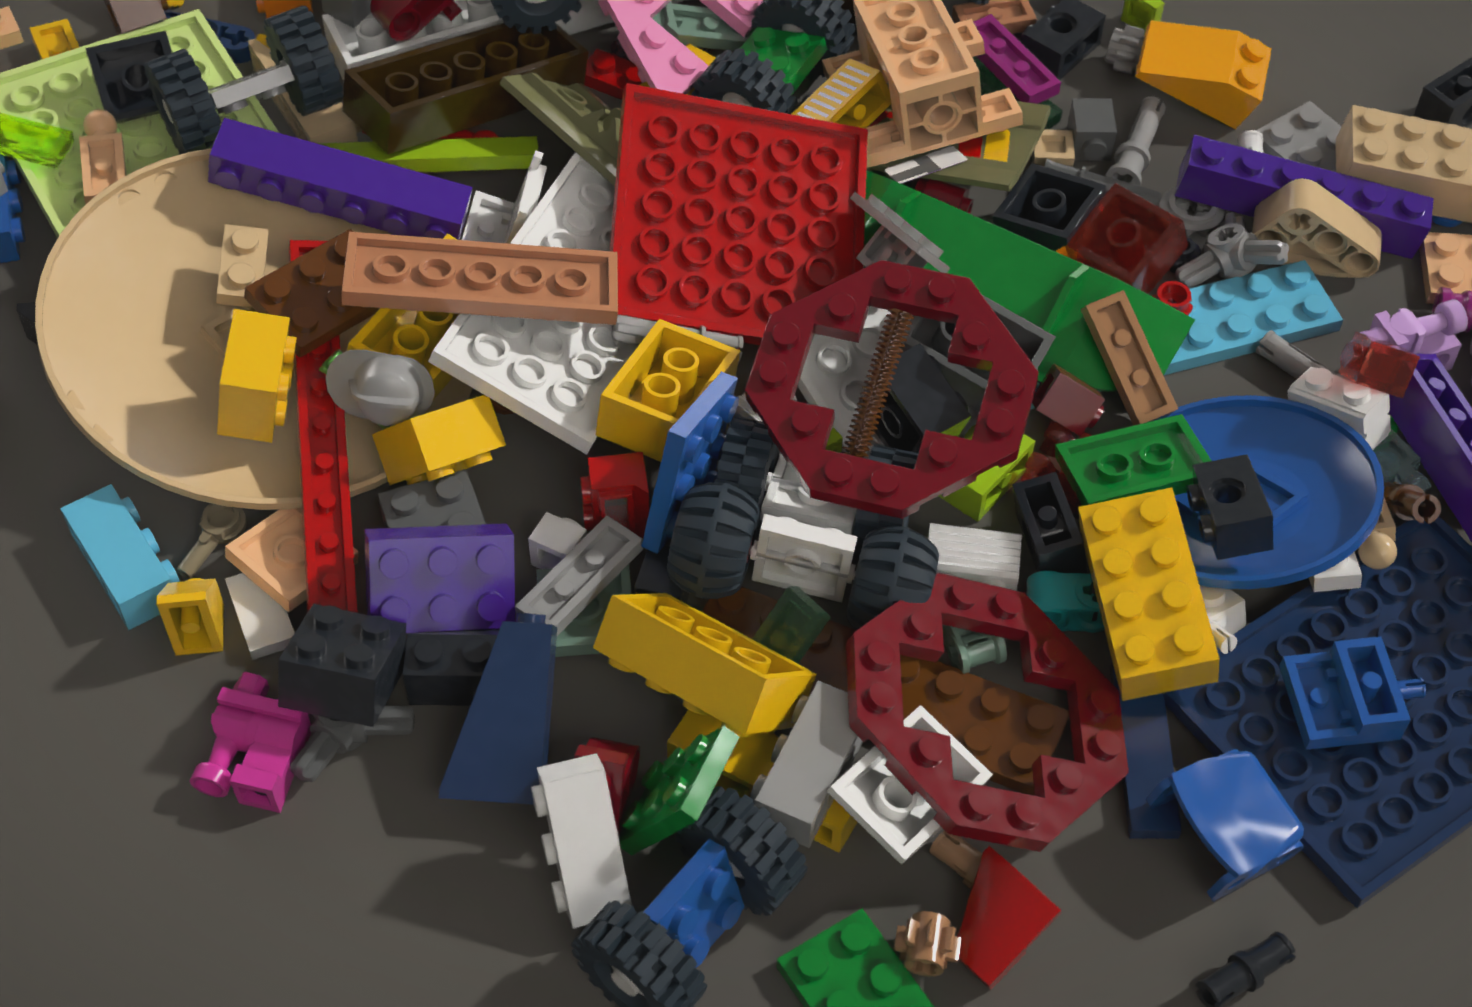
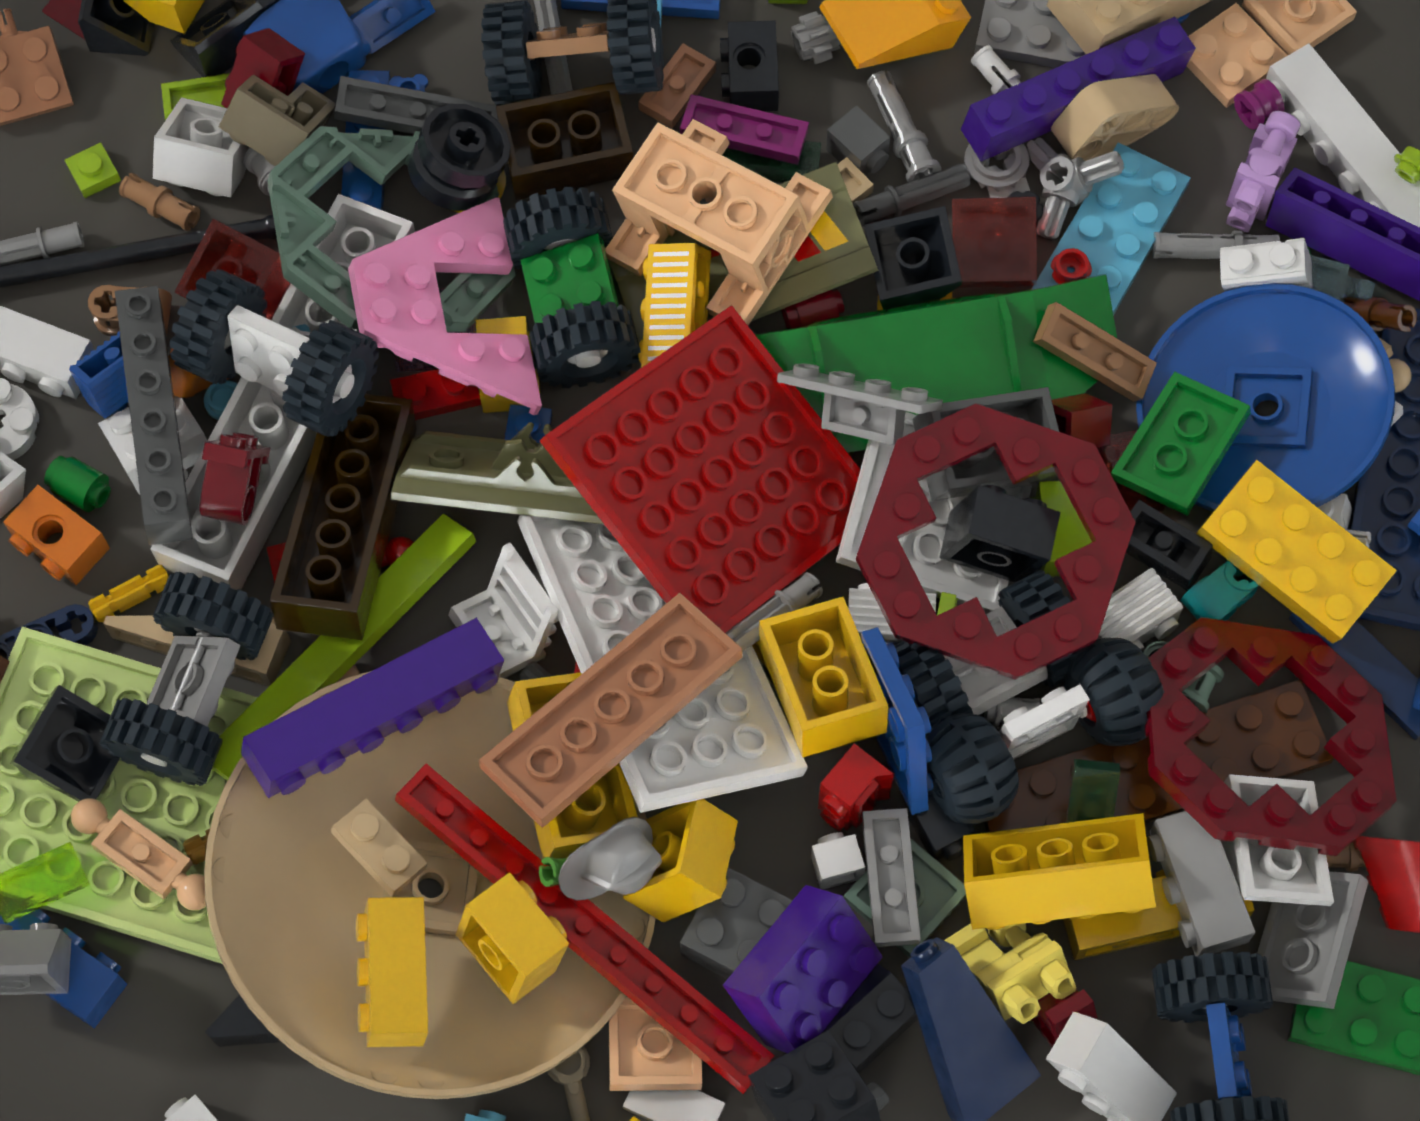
camera: 40 degrees left, 15 degrees up
(153, 334) = (393, 972): none -> yellow brick
(310, 295) = (470, 821): reddish brown plate -> none
(593, 715) = (1021, 975): none -> light yellow hips
(676, 790) = (1137, 980): green plate -> none
(866, 893) = (1312, 943): none -> light grey plate
(878, 383) = (986, 554): reddish brown axle -> none
(925, 164) = (786, 294): sticker -> none
(927, 943) = (1376, 939): medium nougat gear -> none
(1231, 507) = (1276, 411): black brick -> none
(1378, 364) = (1279, 218): clear red brick -> none

